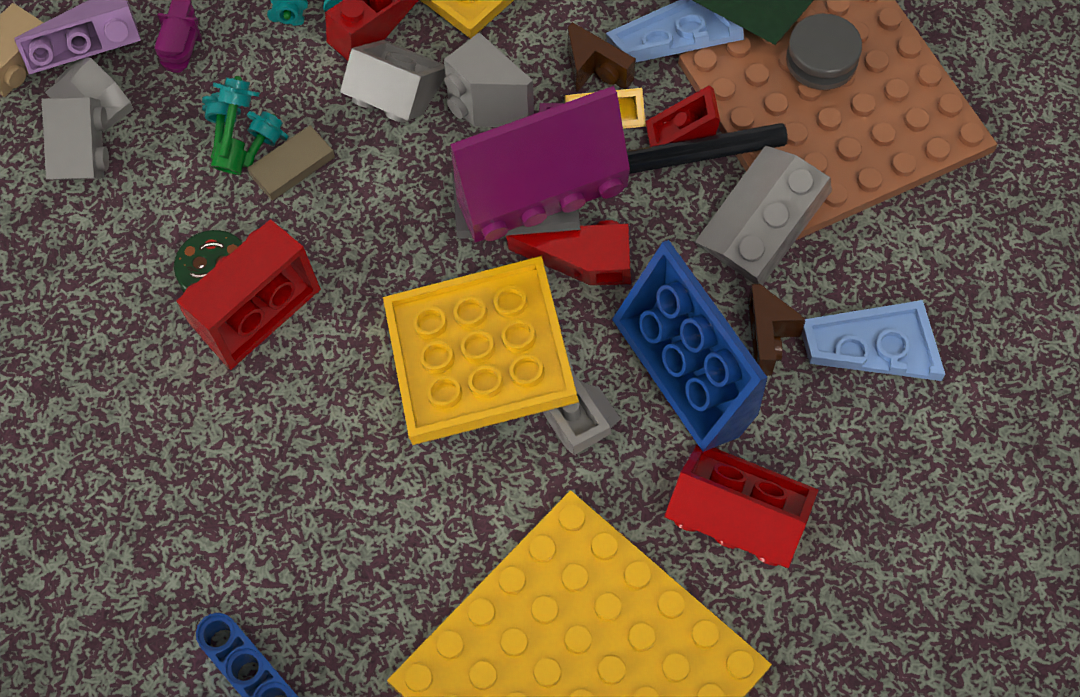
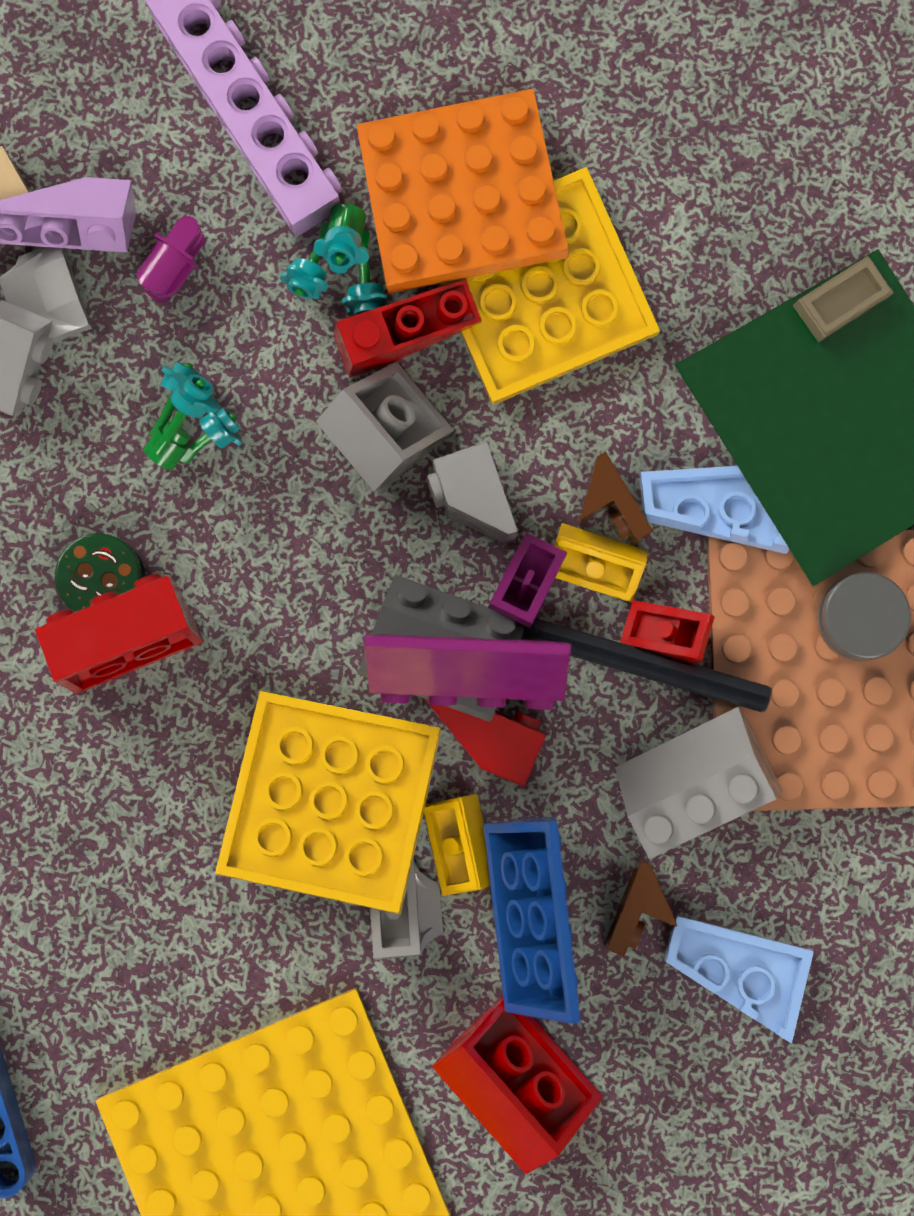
camera: 20 degrees right, 20 degrees up
(291, 162) = (232, 477): dark tan tile -> none
(599, 349) = (458, 844): none -> yellow slope

